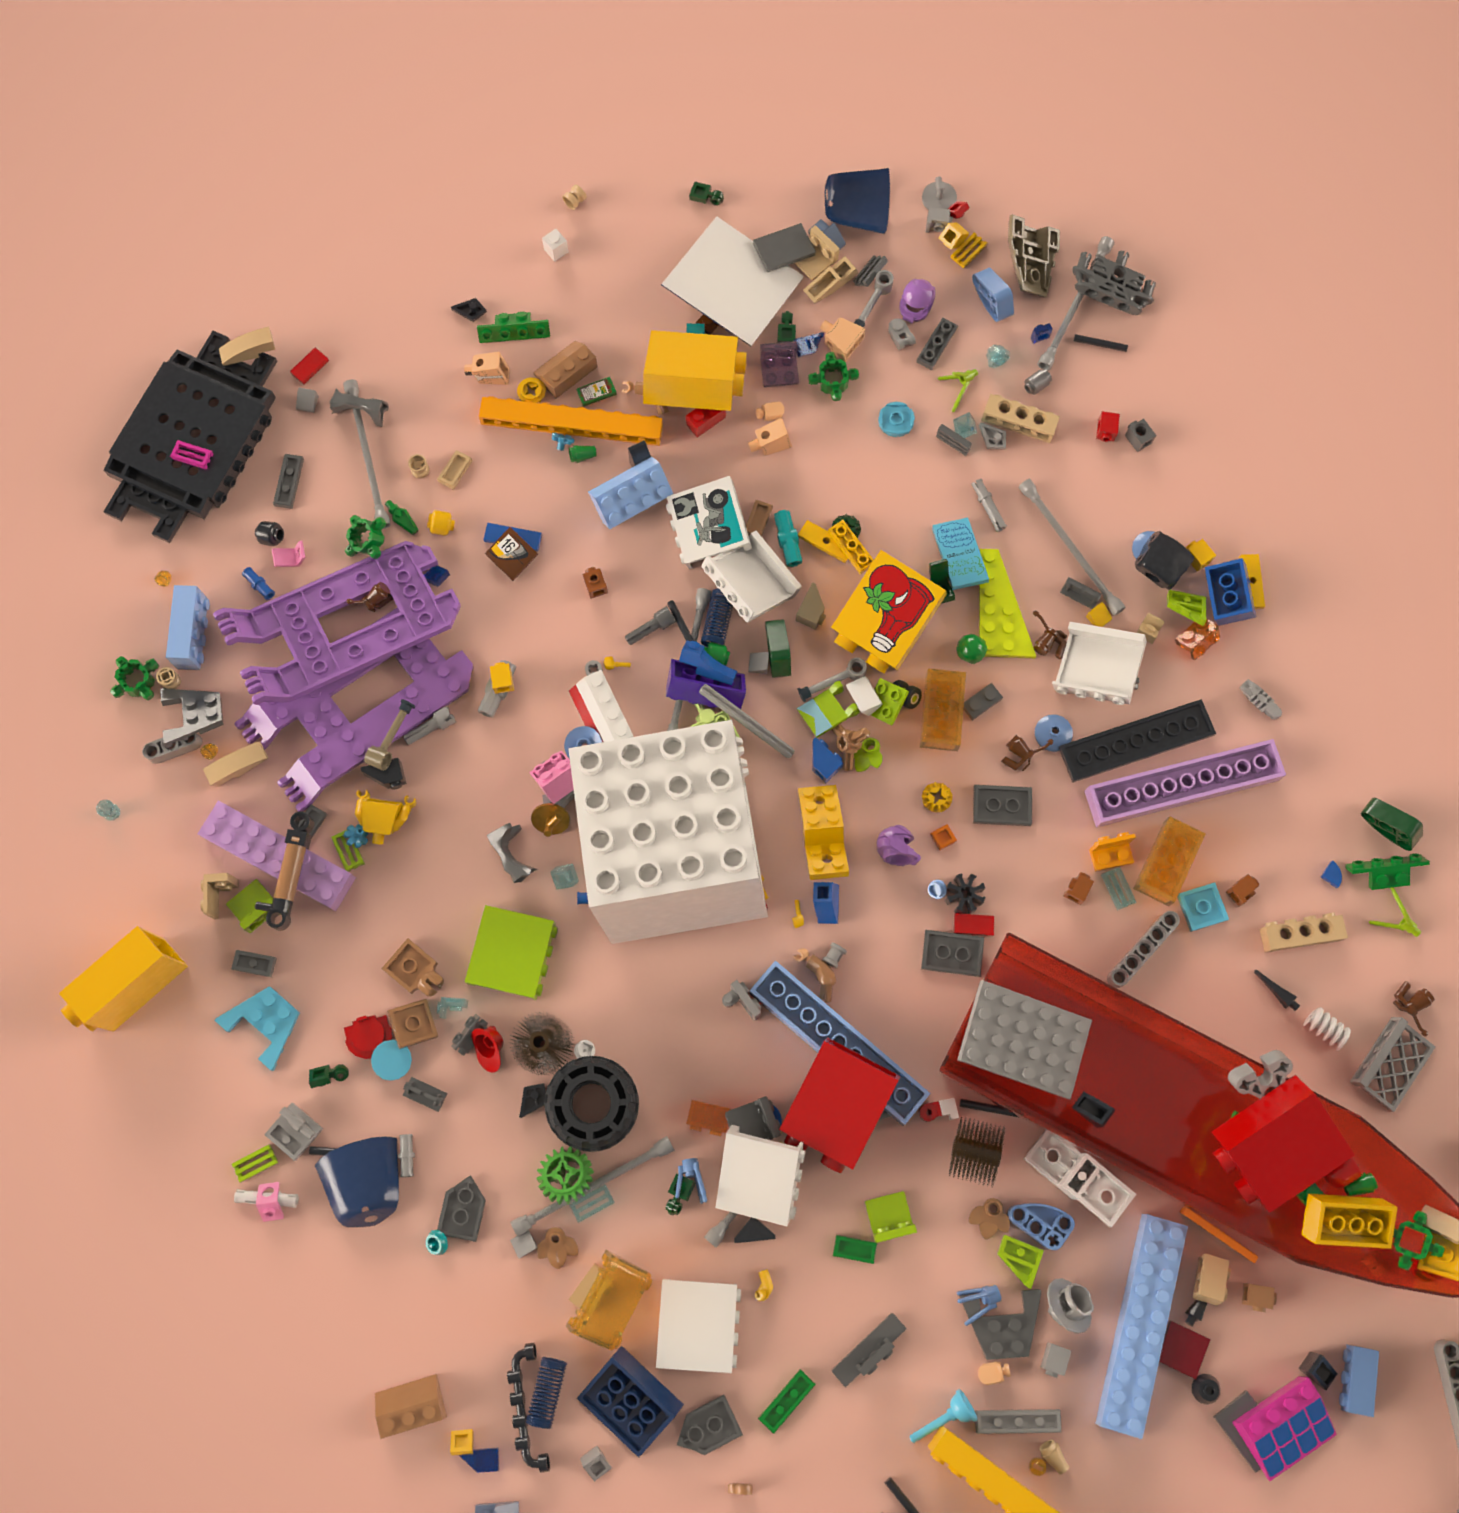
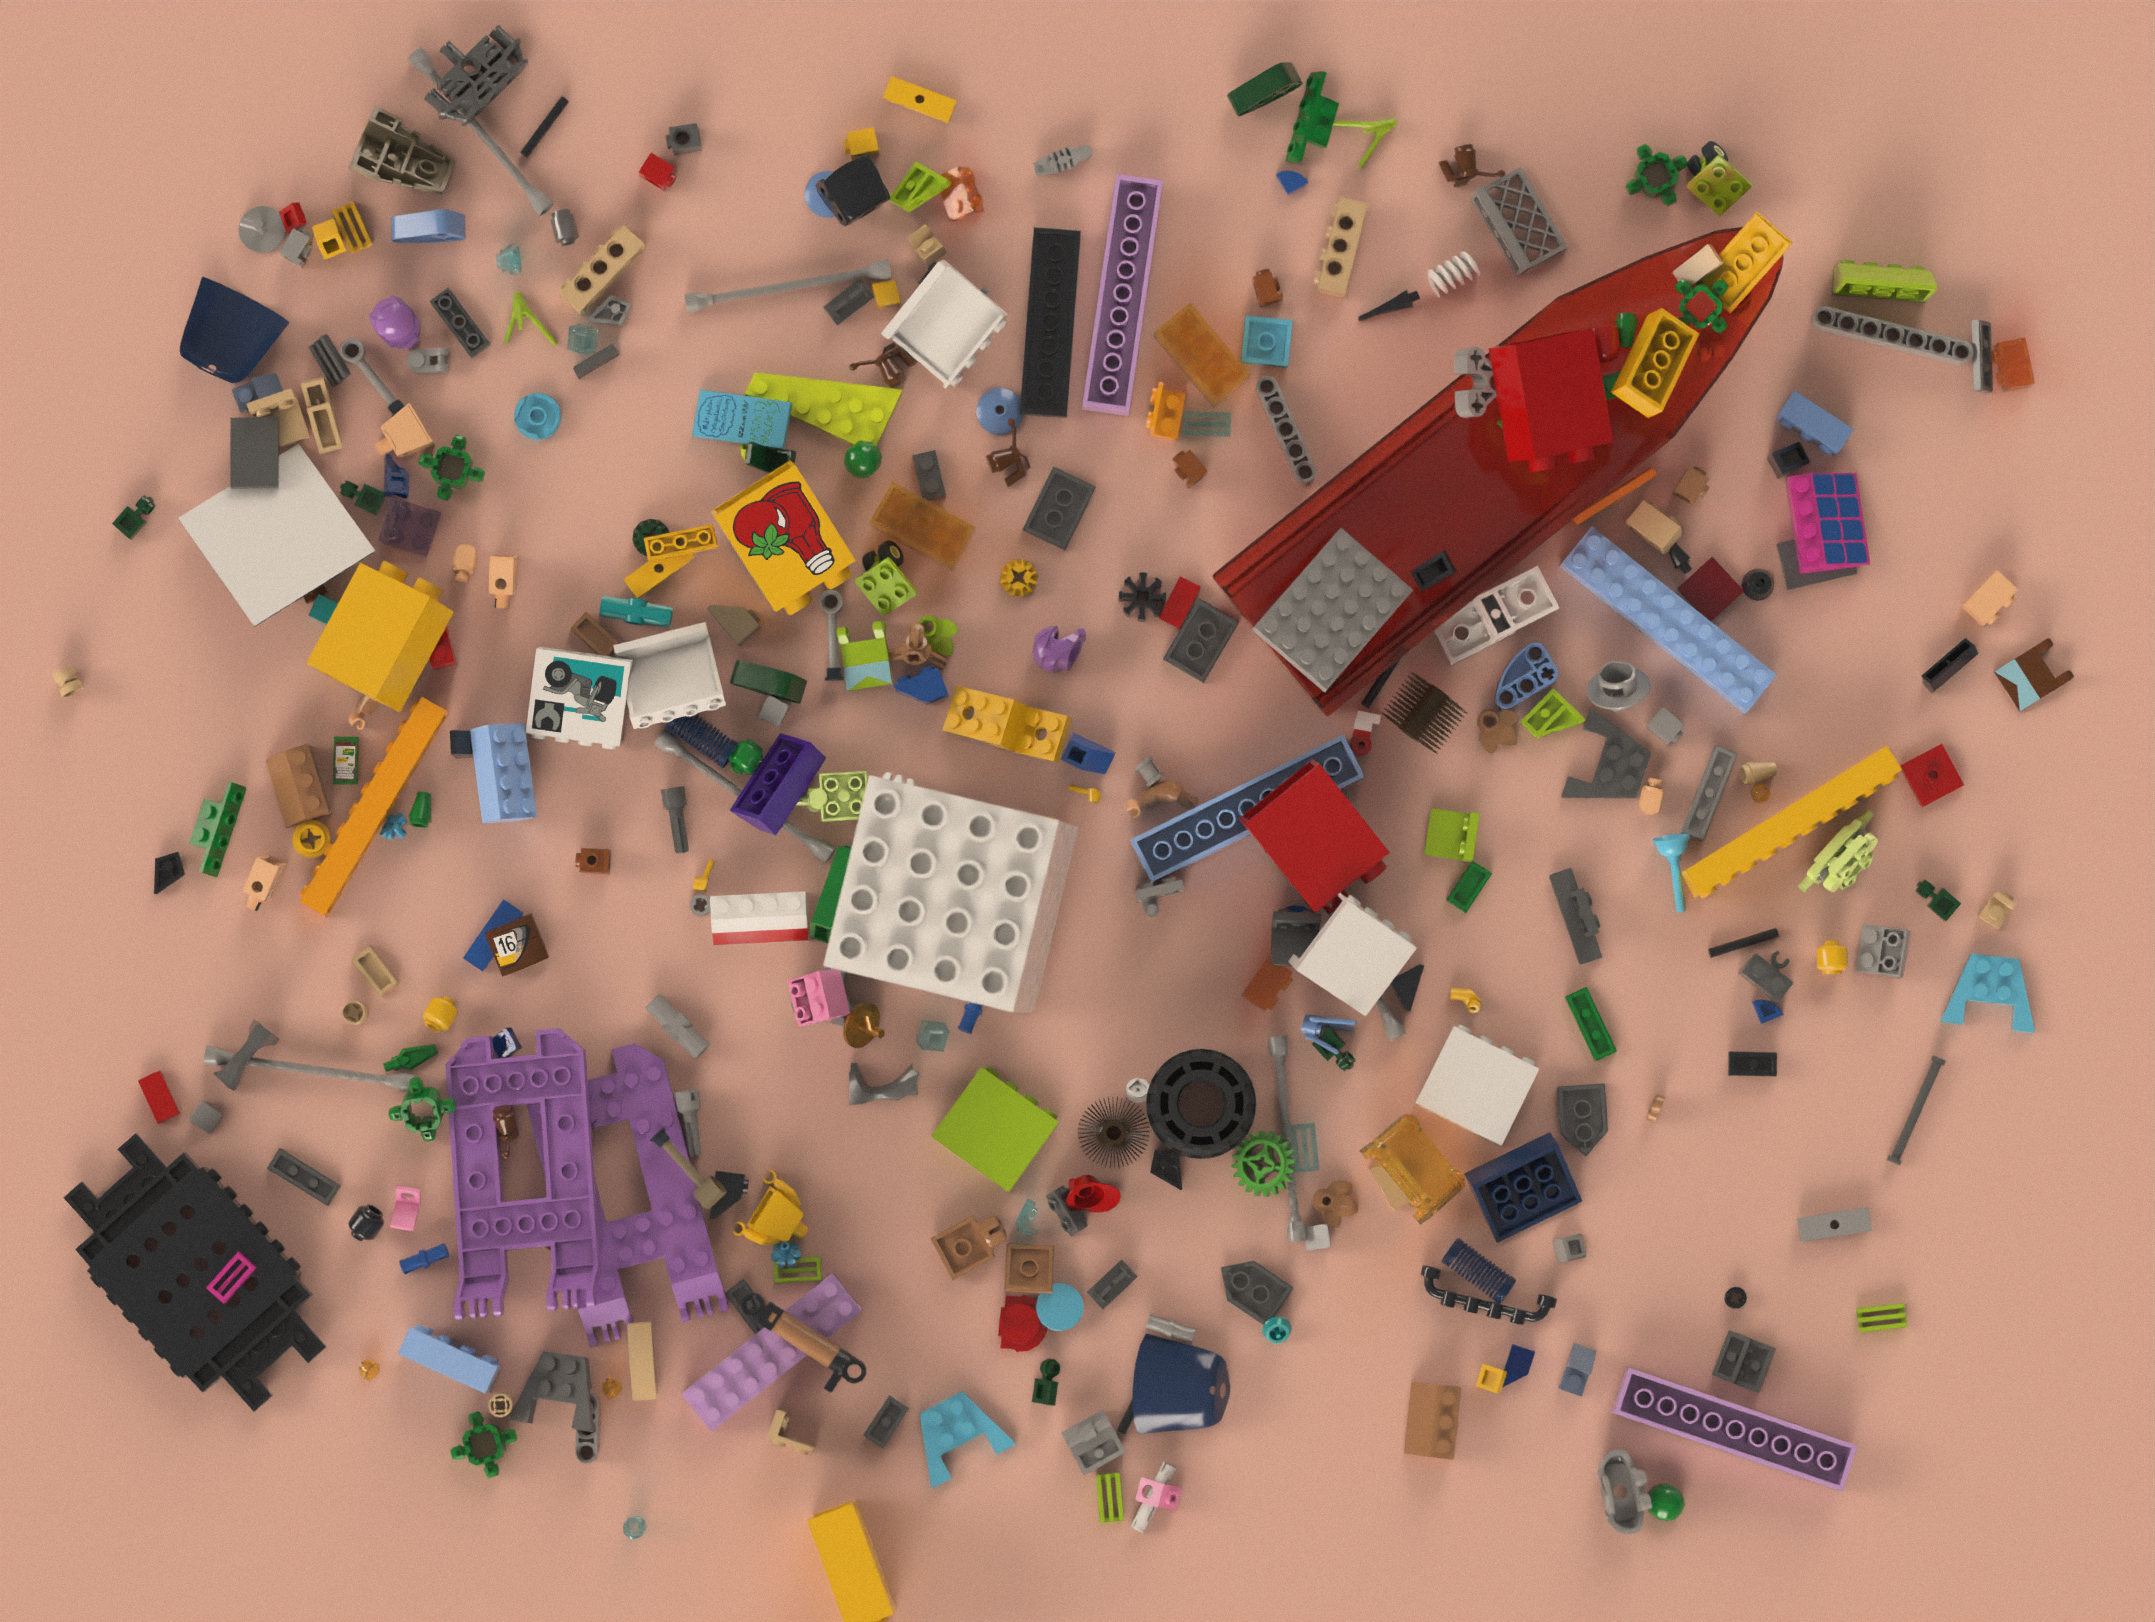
camera: 70 degrees left, 10 degrees up
(244, 905) = (816, 1404): lime bracket -> none
(247, 346) = (110, 1162): tan slope -> none
(501, 678) = (673, 1014): yellow brick -> none
(555, 245) = (126, 732): white brick -> none
(581, 735) = (785, 965): medium blue dish -> none
(678, 618) = (689, 780): black bar -> none
(695, 655) = (742, 780): blue slope -> none
(746, 721) = (843, 755): light grey axle -> none
(864, 695) = (867, 608): white slope -> none
(937, 889) = (1123, 625): light blue plate -> none
(943, 837) = (1067, 591): orange tile -> none
(988, 504) = (695, 357): light grey pin -> none
(988, 1295) = (1573, 767): medium blue plant -> none
(1041, 332) = (501, 193): clear blue plate -> none
(1230, 592) = (924, 133): blue brick -> none

